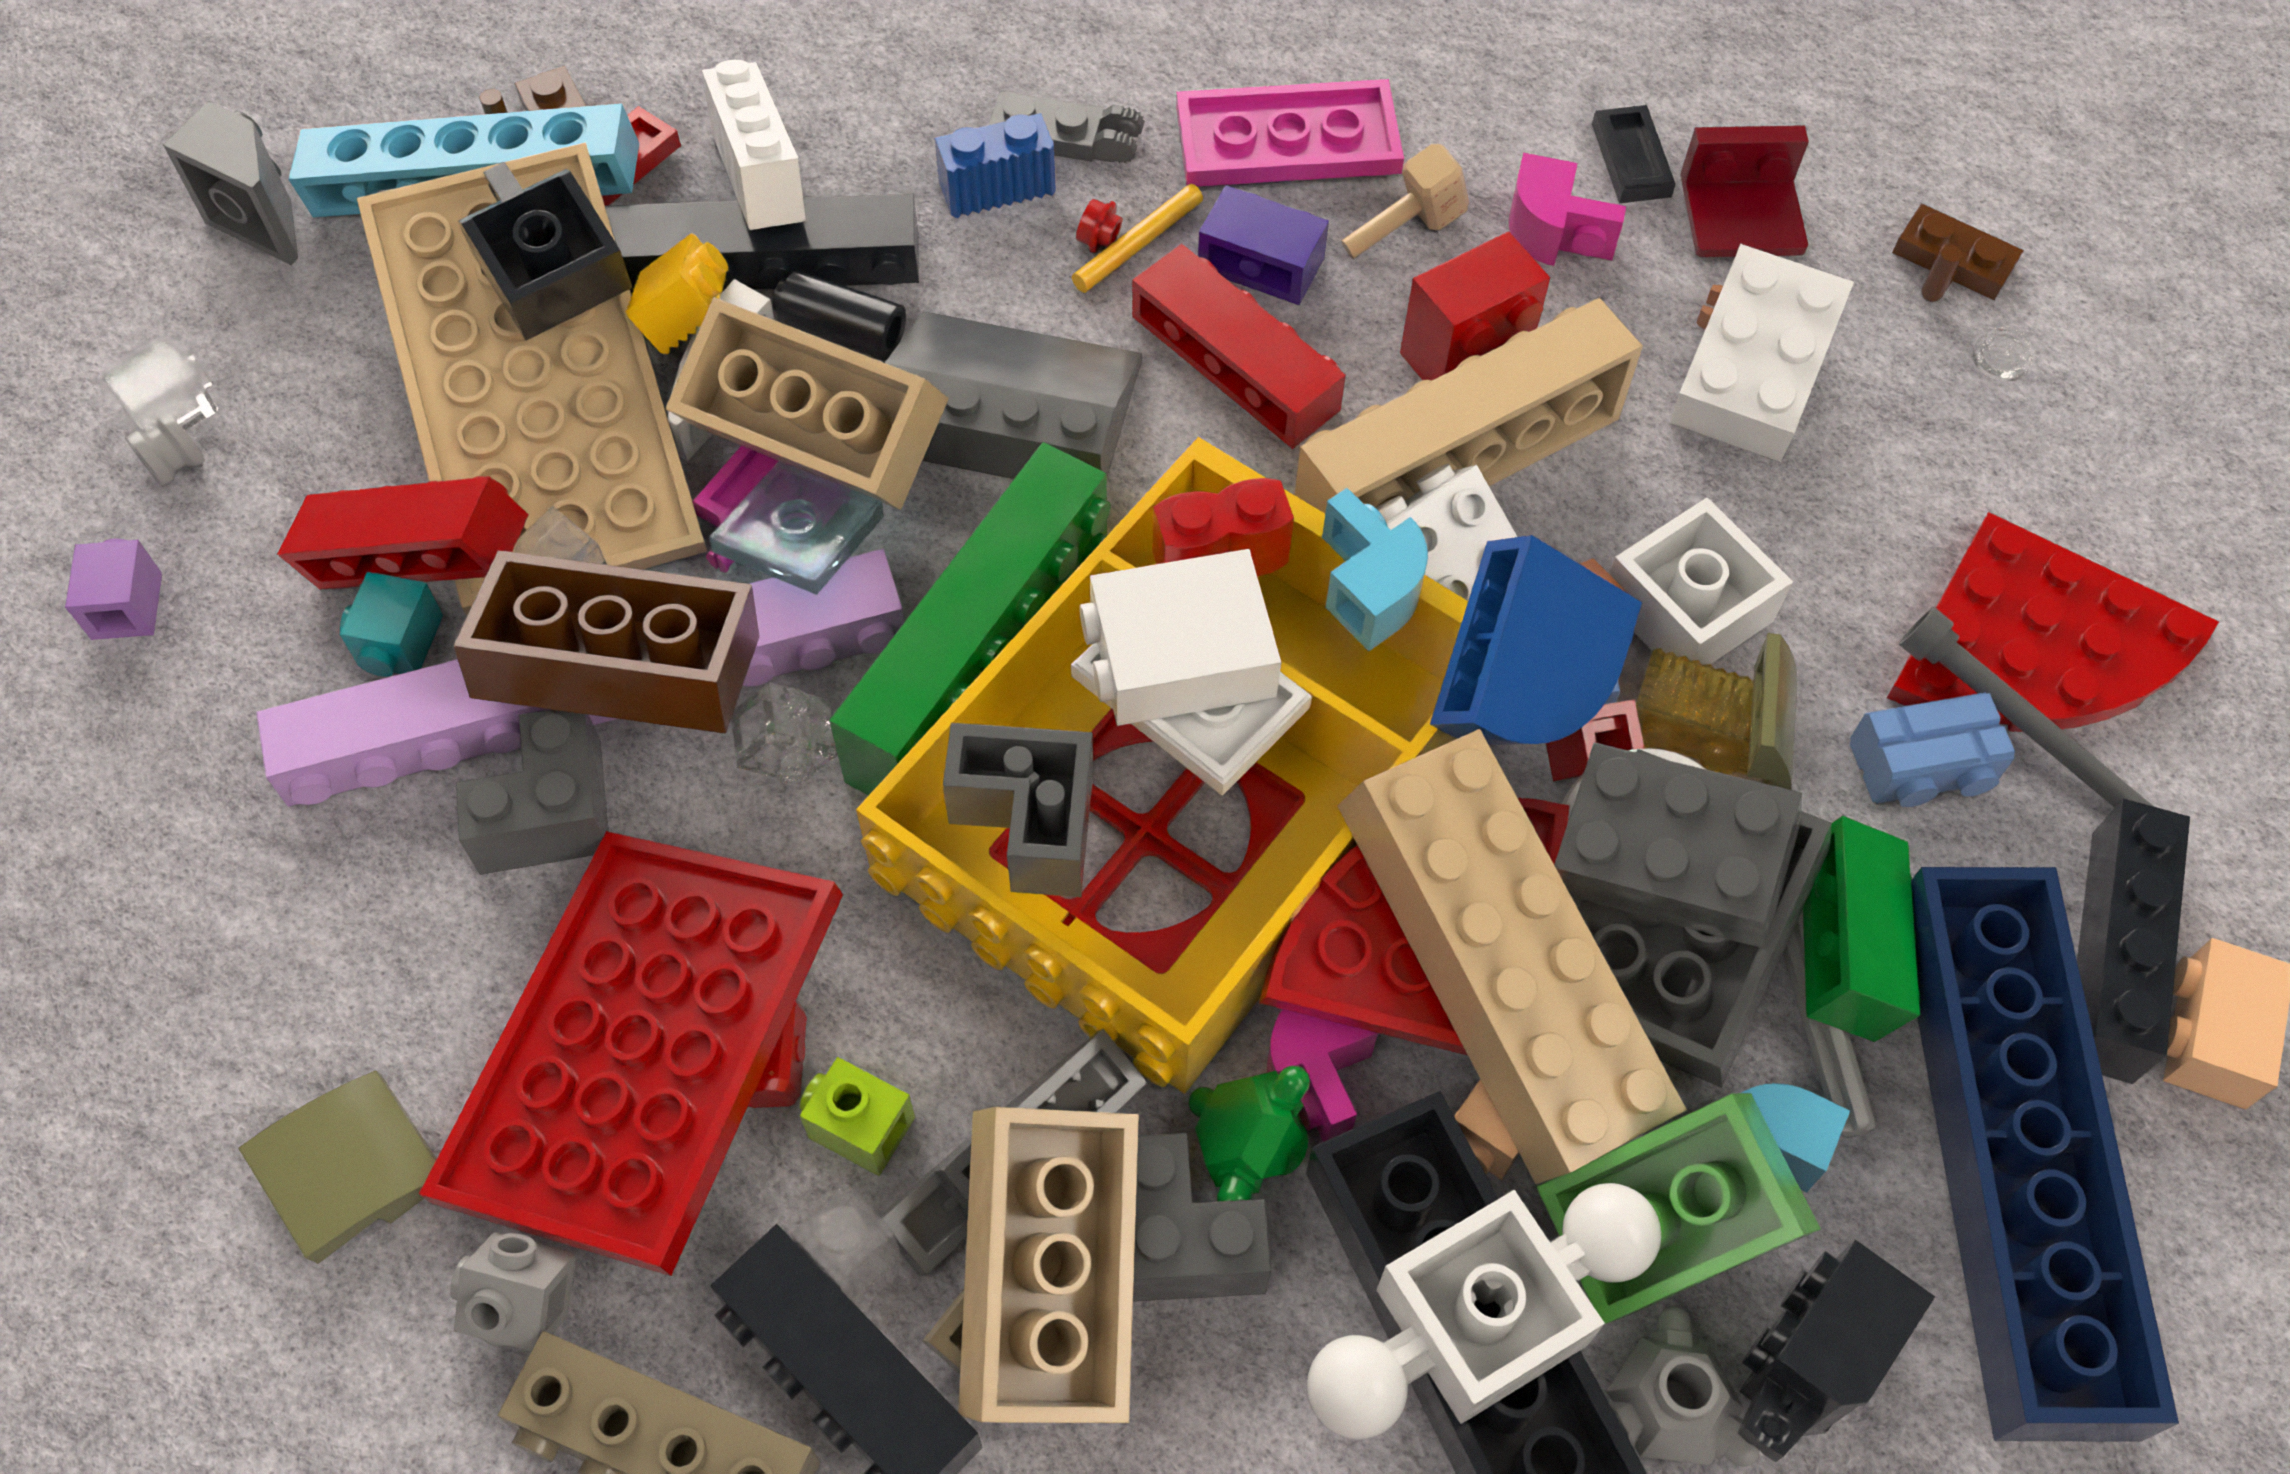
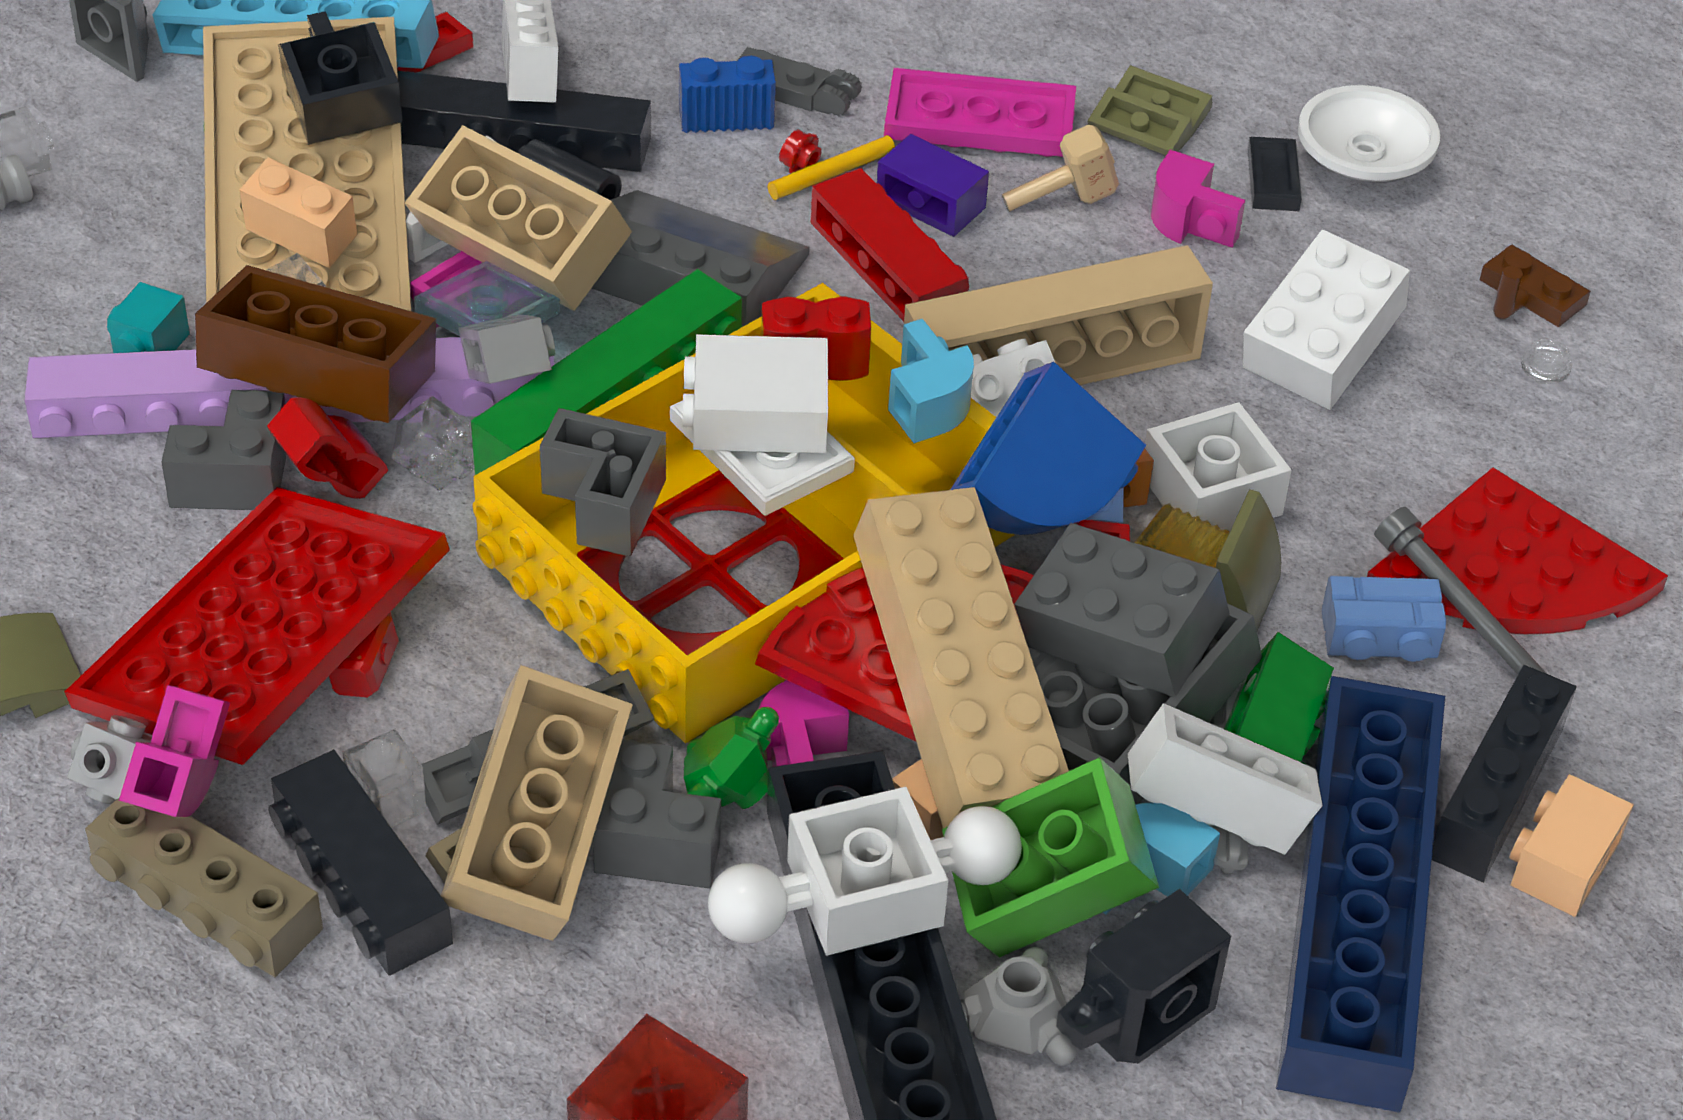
camera: 10 degrees right, 15 degrees down
(403, 532) = (173, 255): red brick -> none
(538, 442) = (298, 212): none -> light nougat brick
(592, 1306) = (179, 762): none -> dark pink brick
(654, 772) = (327, 448): none -> red brick
(677, 292) = (429, 135): yellow brick -> none
(845, 605) = (507, 348): none -> light grey brick
(856, 1115) = (419, 704): lime brick -> none
(1472, 305) = (1088, 233): red brick -> none
(1476, 95) = (1151, 111): none -> olive slope
(1732, 79) = (1368, 133): none -> white dish
(1744, 189) = (1360, 201): dark red bracket -> none
(1848, 1051) = (1223, 779): none -> white brick

